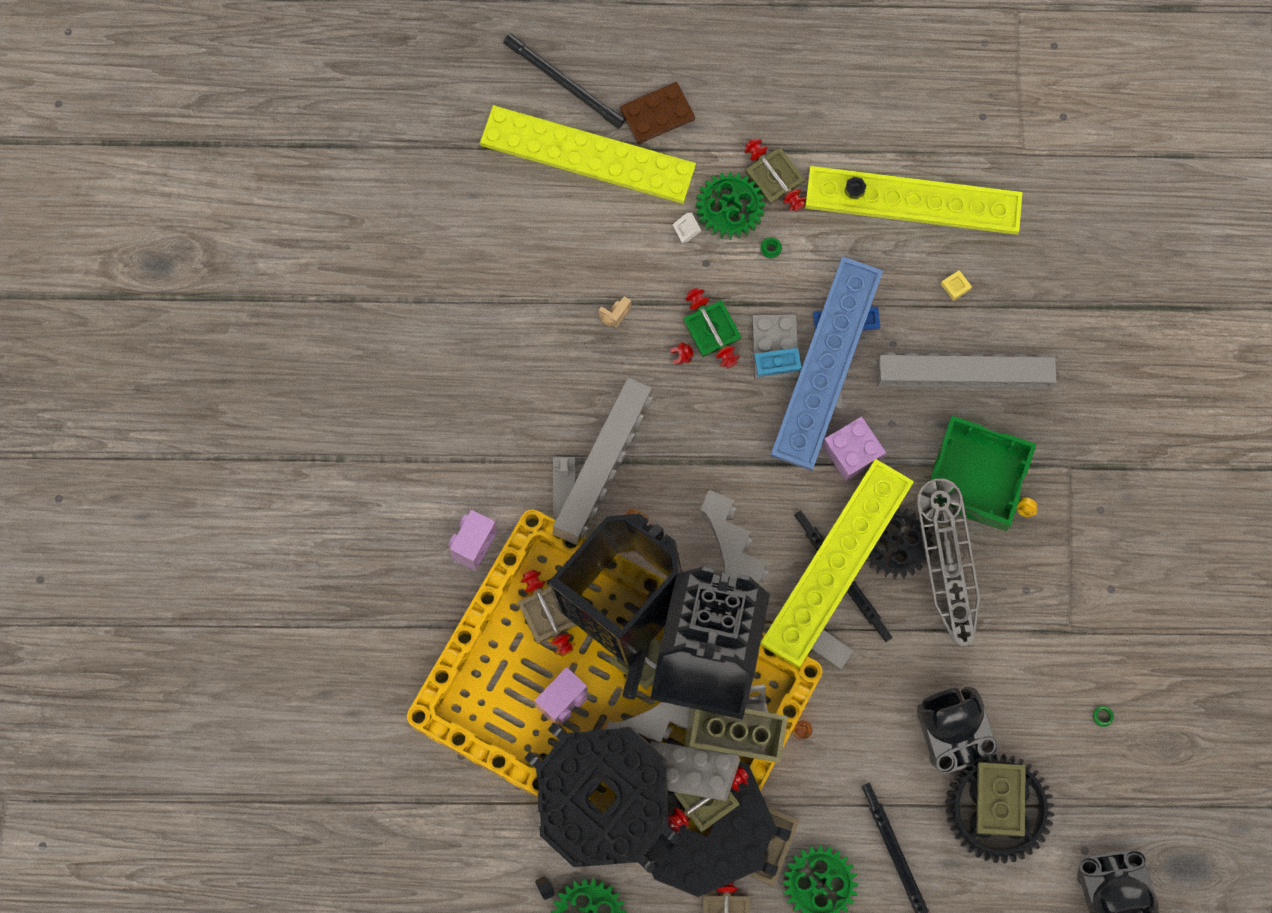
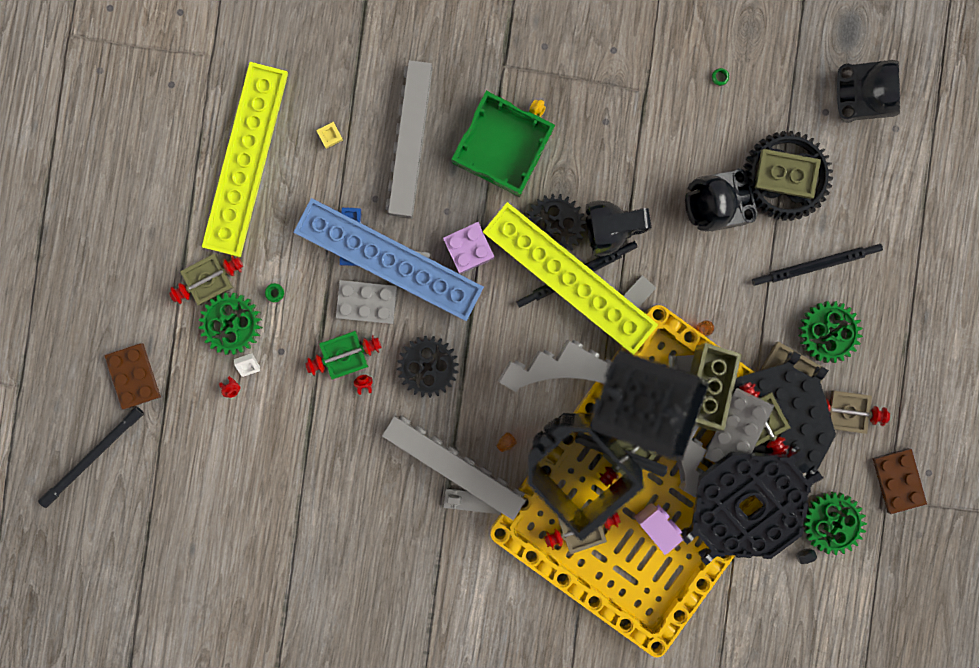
camera: 75 degrees left, 15 degrees up
(472, 540) = (512, 587): lavender brick -> none
(588, 154) = (165, 444): neon yellow plate -> none
(619, 311) = (318, 434): tan bracket -> none
(657, 213) = (231, 389): none -> red plate
(700, 436) = (441, 378): none -> black gear
(777, 362) = (384, 303): dark azure plate -> none
(855, 188) = (228, 210): black tile -> none
(905, 601) = (611, 226): none -> black piece
(950, 573) = (590, 182): light grey beam -> none

